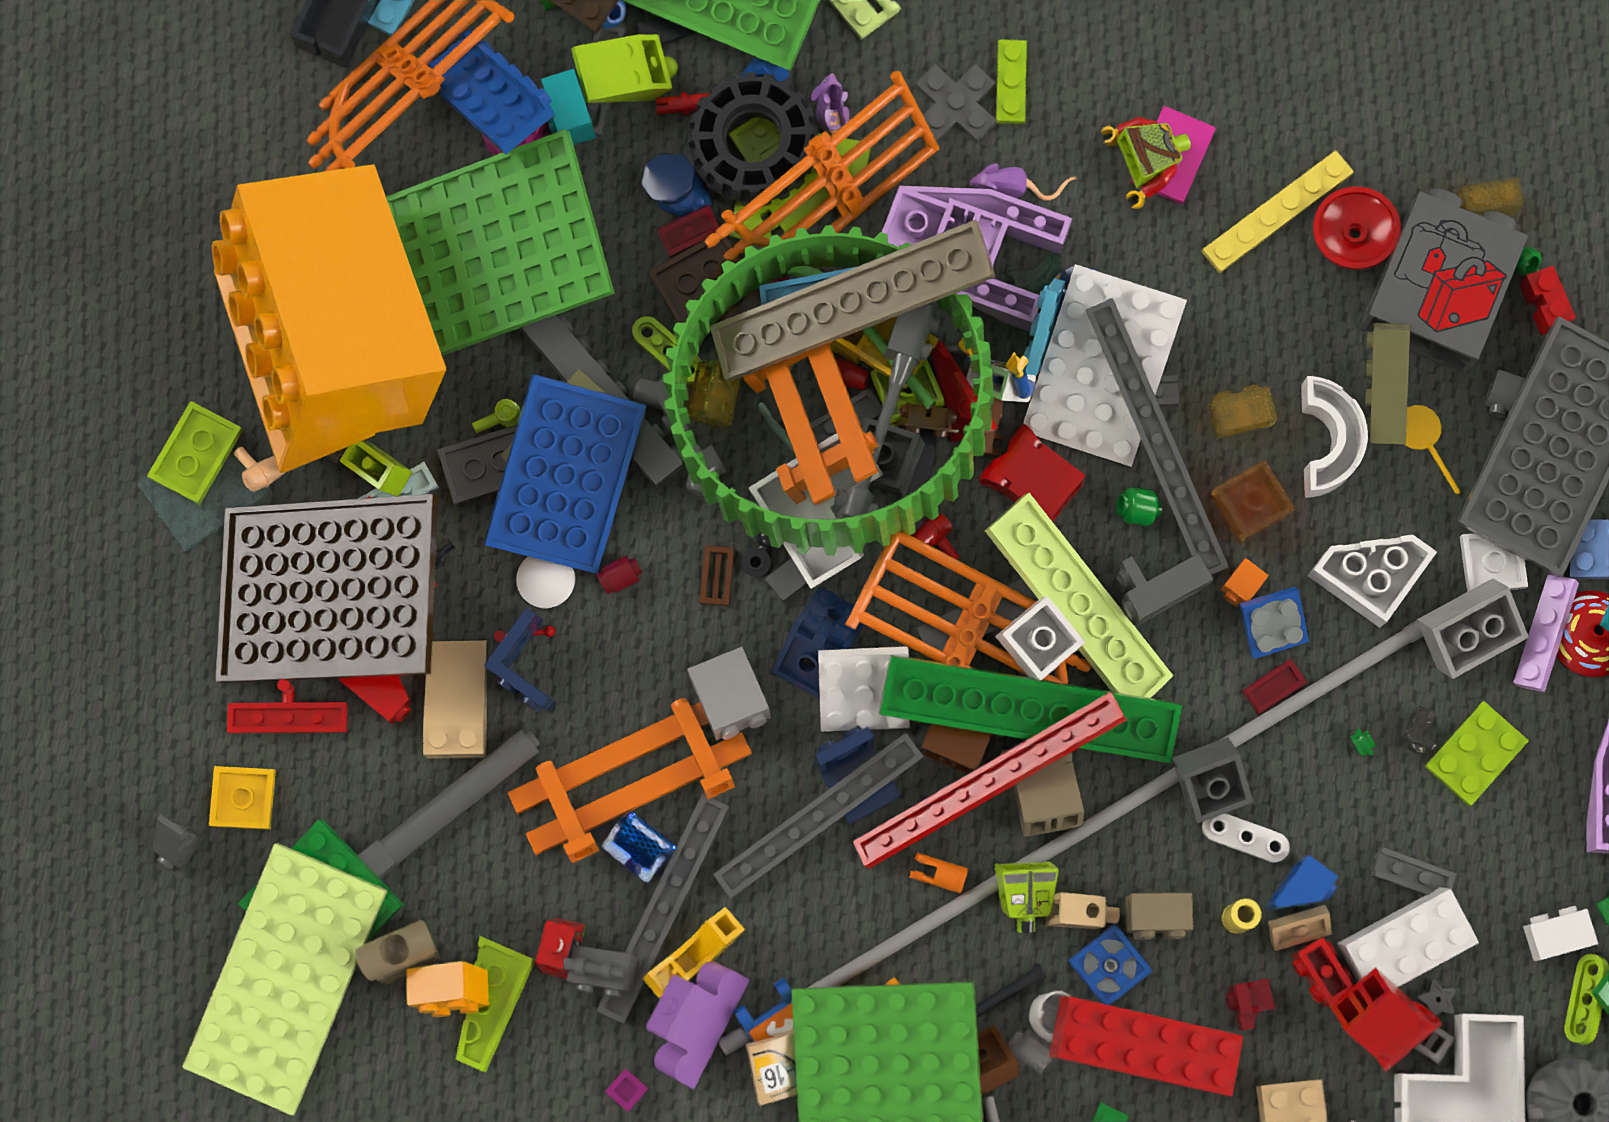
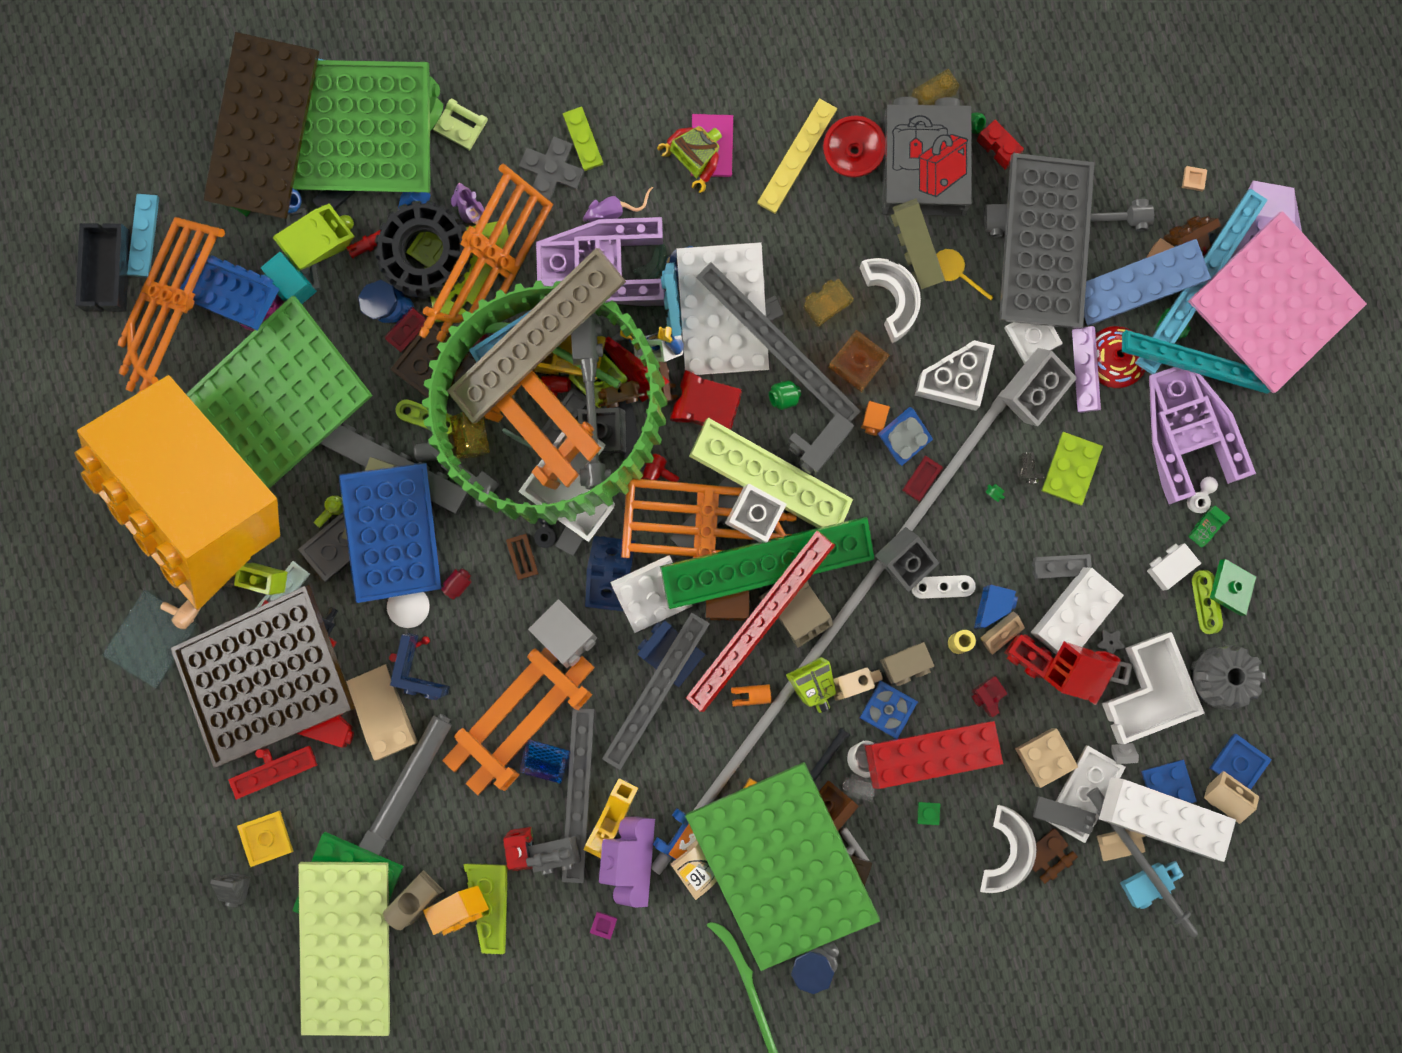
camera: 20 degrees left, 5 degrees up
(195, 453) = (133, 619): lime plate -> none

